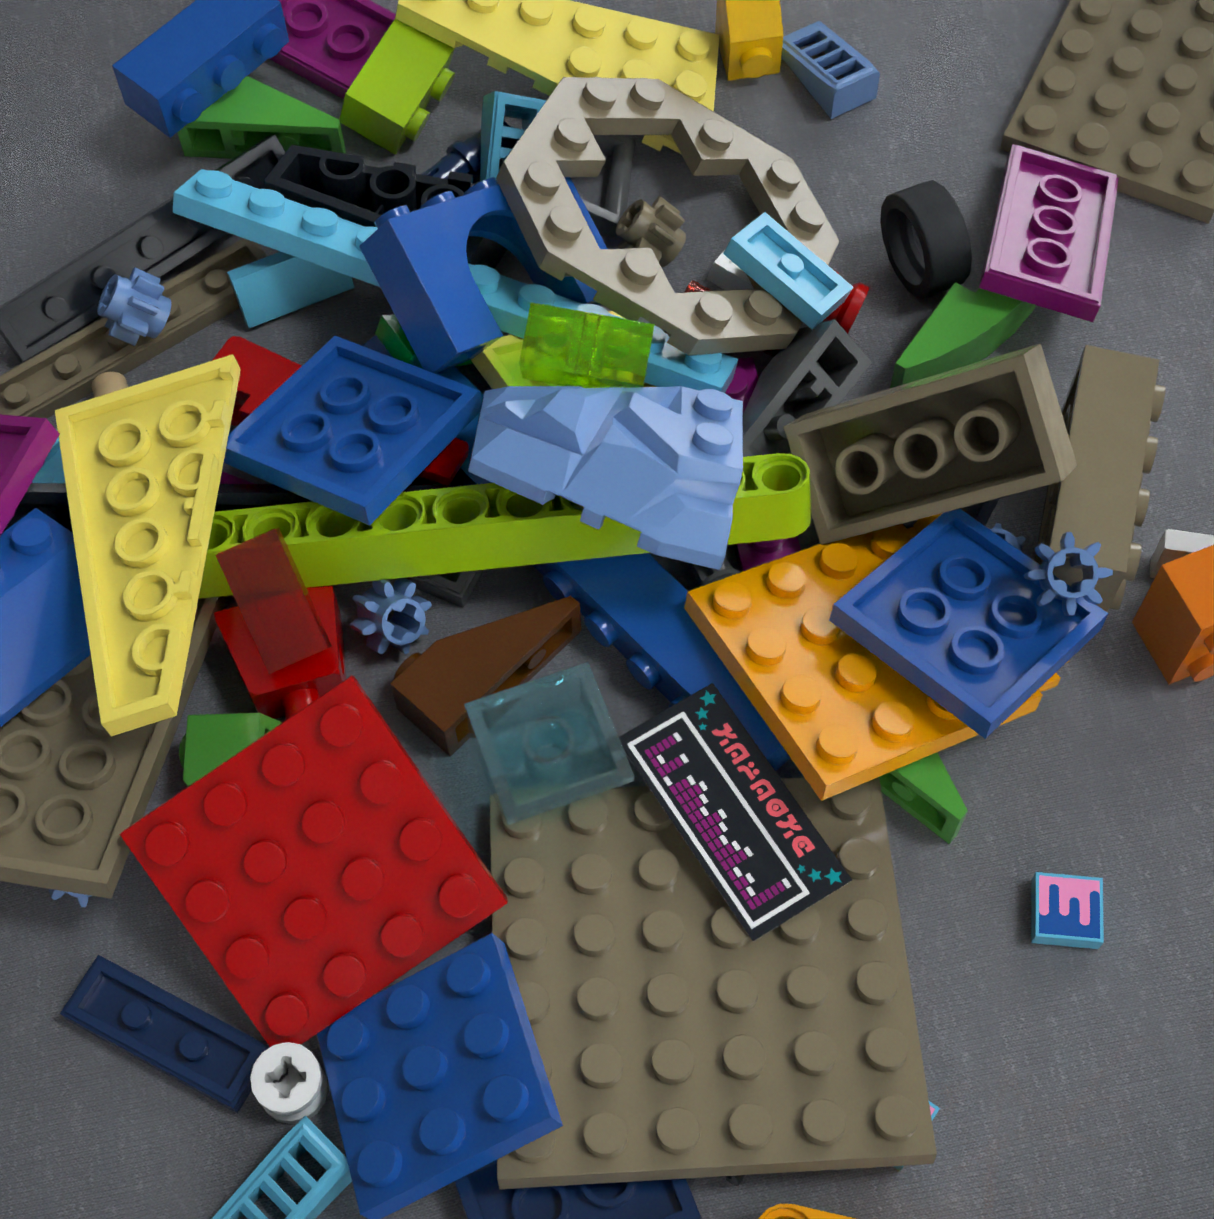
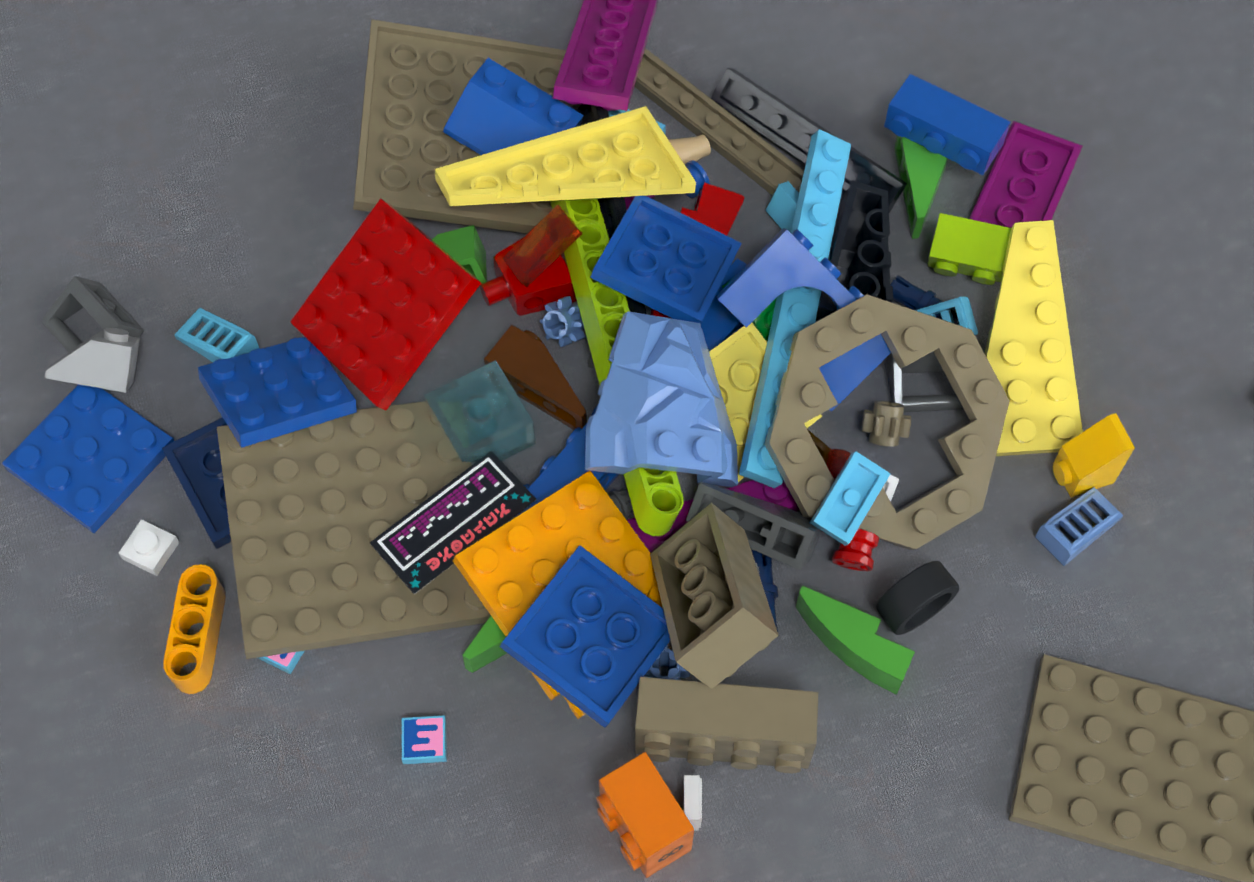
camera: 80 degrees right, 0 degrees up
(134, 306) = (749, 138): medium blue gear -> none
(165, 1032) = (302, 267): dark blue tile -> none
(293, 1096) = (278, 317): white wheel -> none
(584, 349) = (742, 376): clear neon green brick -> none
(1051, 233) = (947, 685): tile -> none
(1079, 559) = (618, 682): medium blue gear -> none

